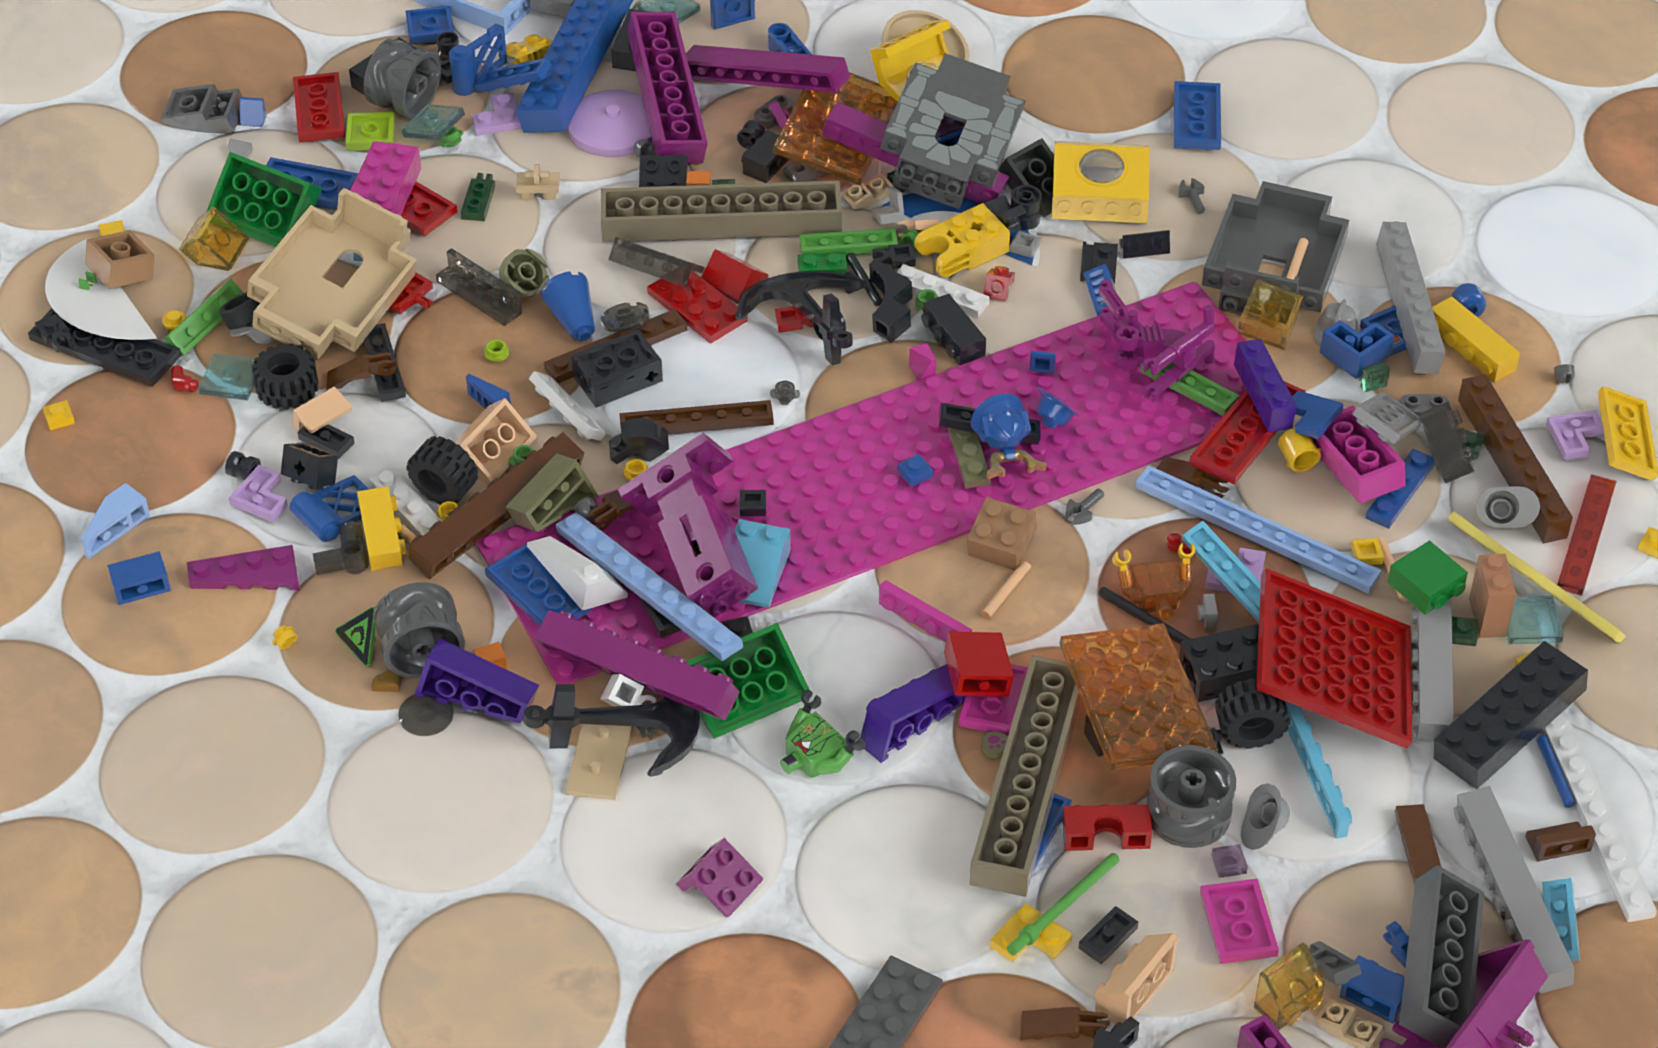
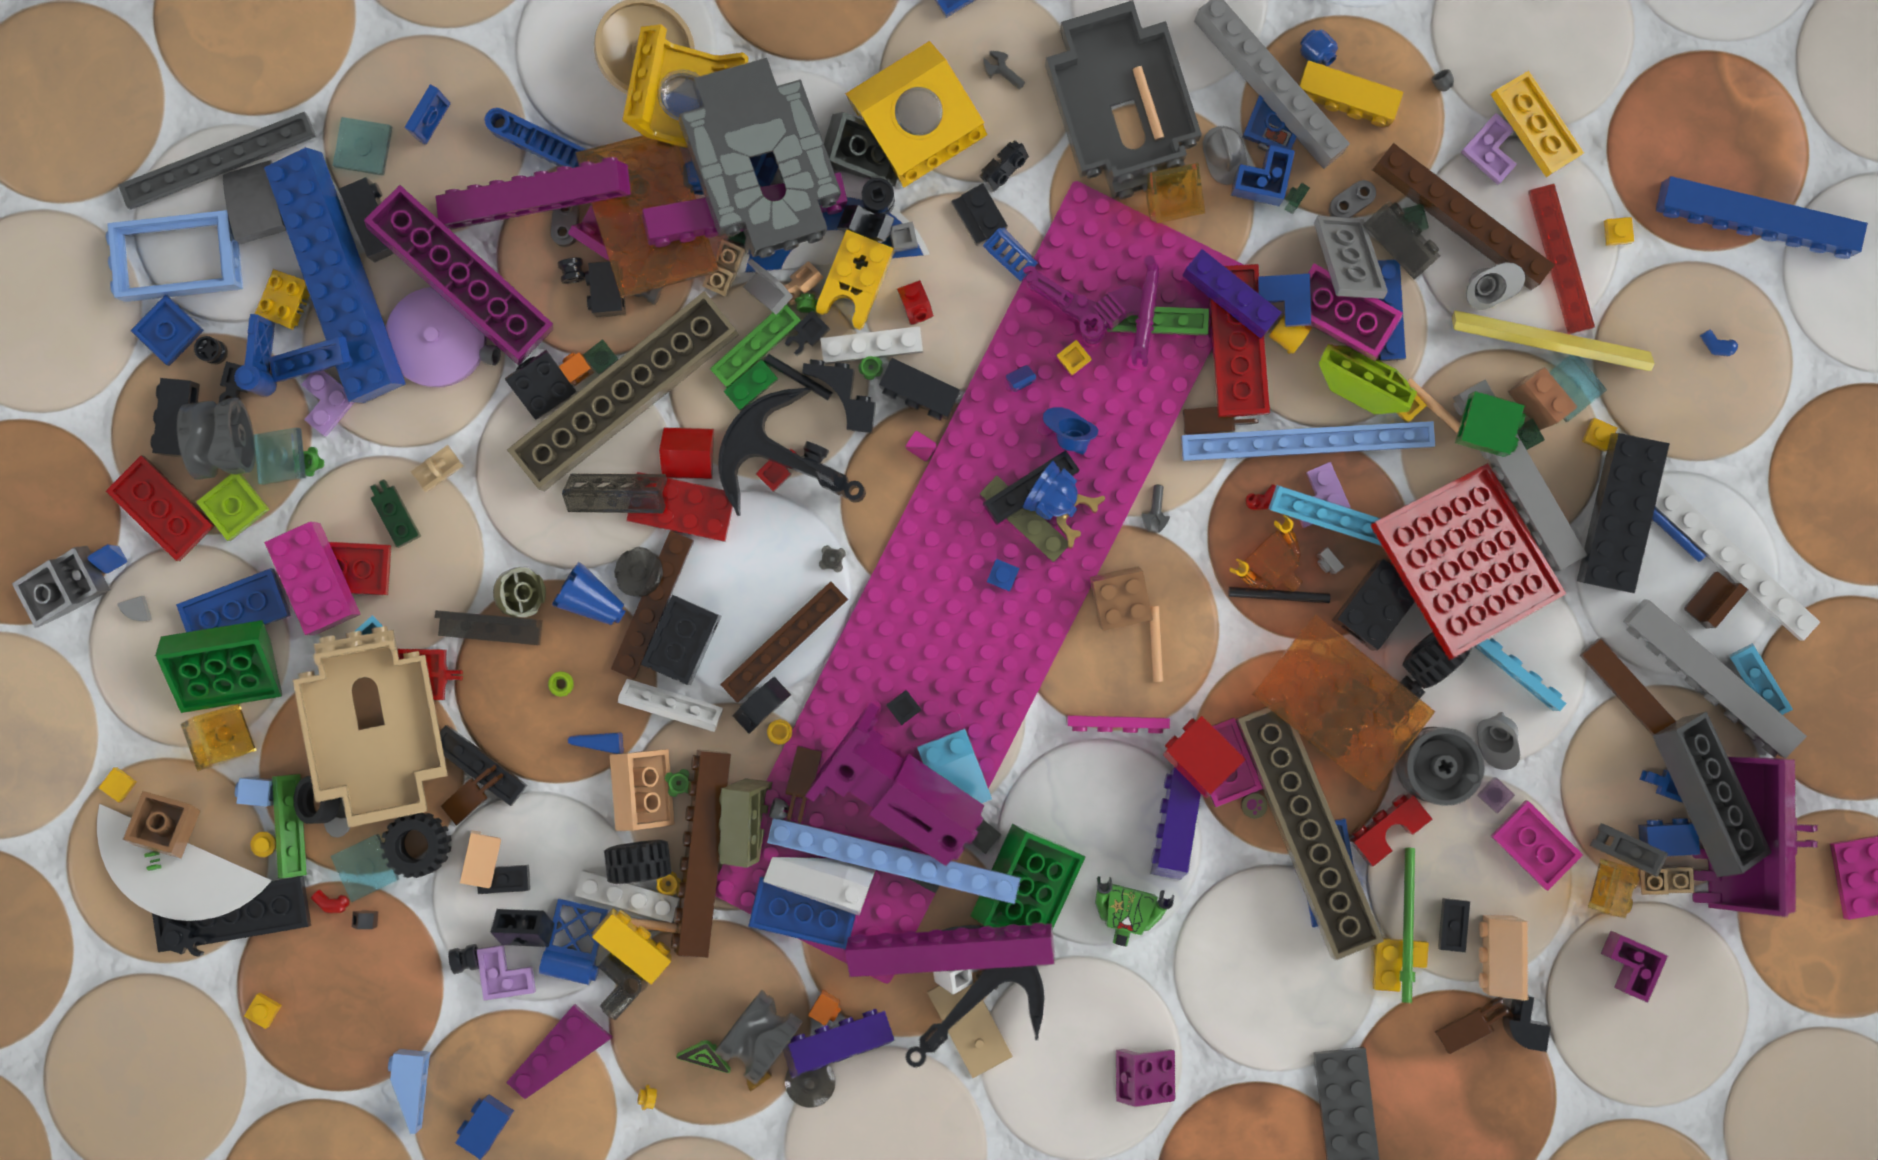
camera: 30 degrees left, 40 degrees up
(197, 402) = (364, 919): none -> black piece
(203, 283) = (254, 791): none -> light blue brick
(1098, 370) = (1074, 357): none -> yellow plate
(1334, 507) = (1365, 381): none -> lime wedge

